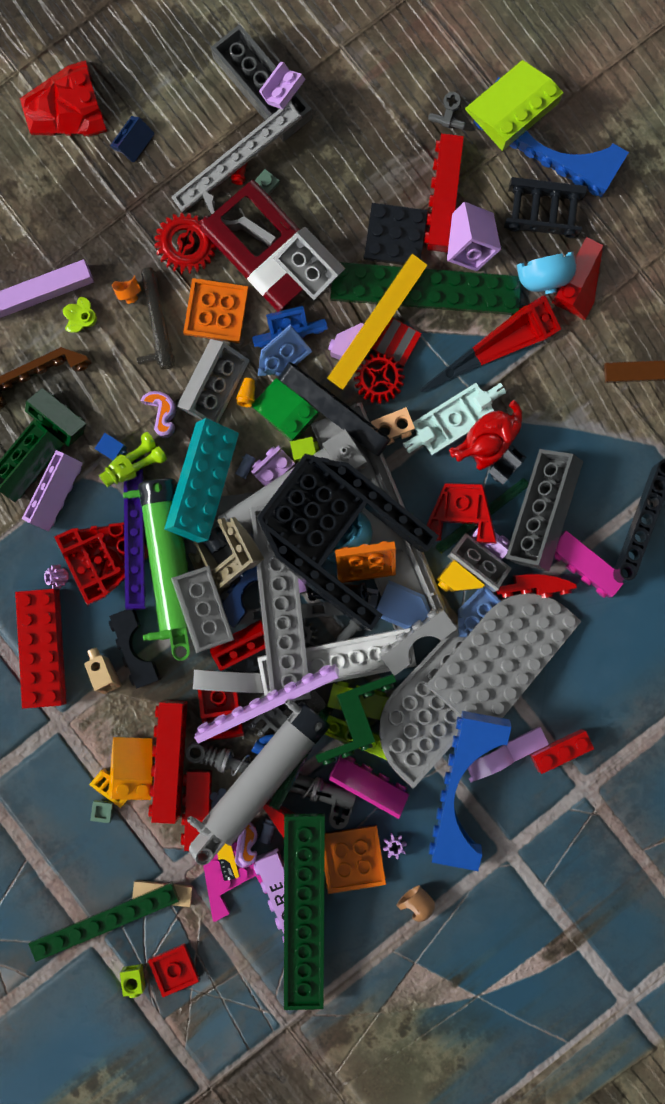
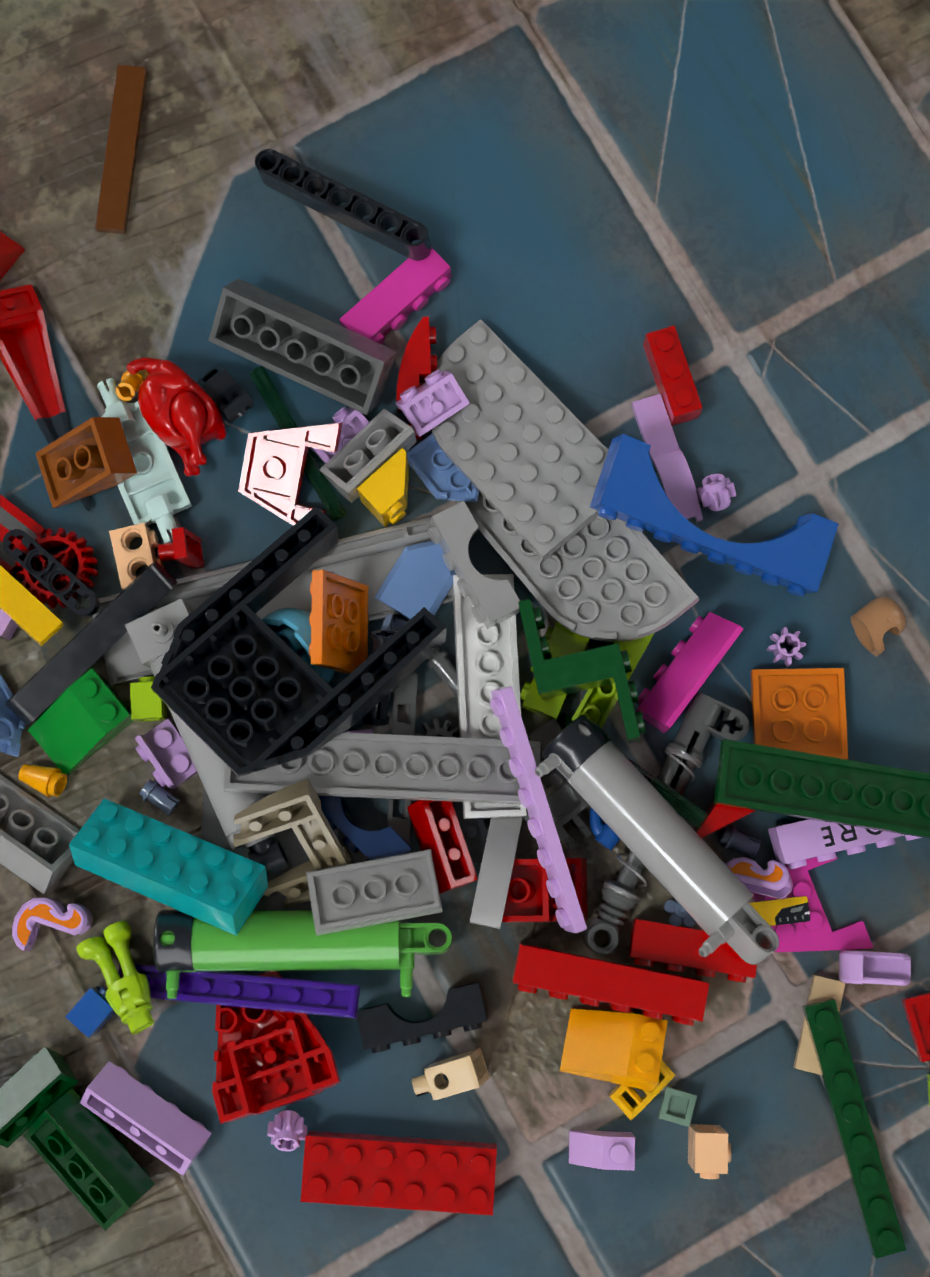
camera: 80 degrees left, 5 degrees down
(70, 769) = (602, 1149): none -> lavender slope
(77, 834) = (708, 1150): none -> light nougat brick
(201, 924) = (874, 967): none -> lavender animal
(375, 377) = (51, 573): none -> black beam
(401, 457) = (184, 548): none -> red tile
(449, 385) = (86, 461): none -> dark orange slope
(488, 789) = (716, 492): none -> lavender gear
(502, 404) = (130, 384): none -> light orange axle
(519, 599) = (432, 401): none -> lavender bracket

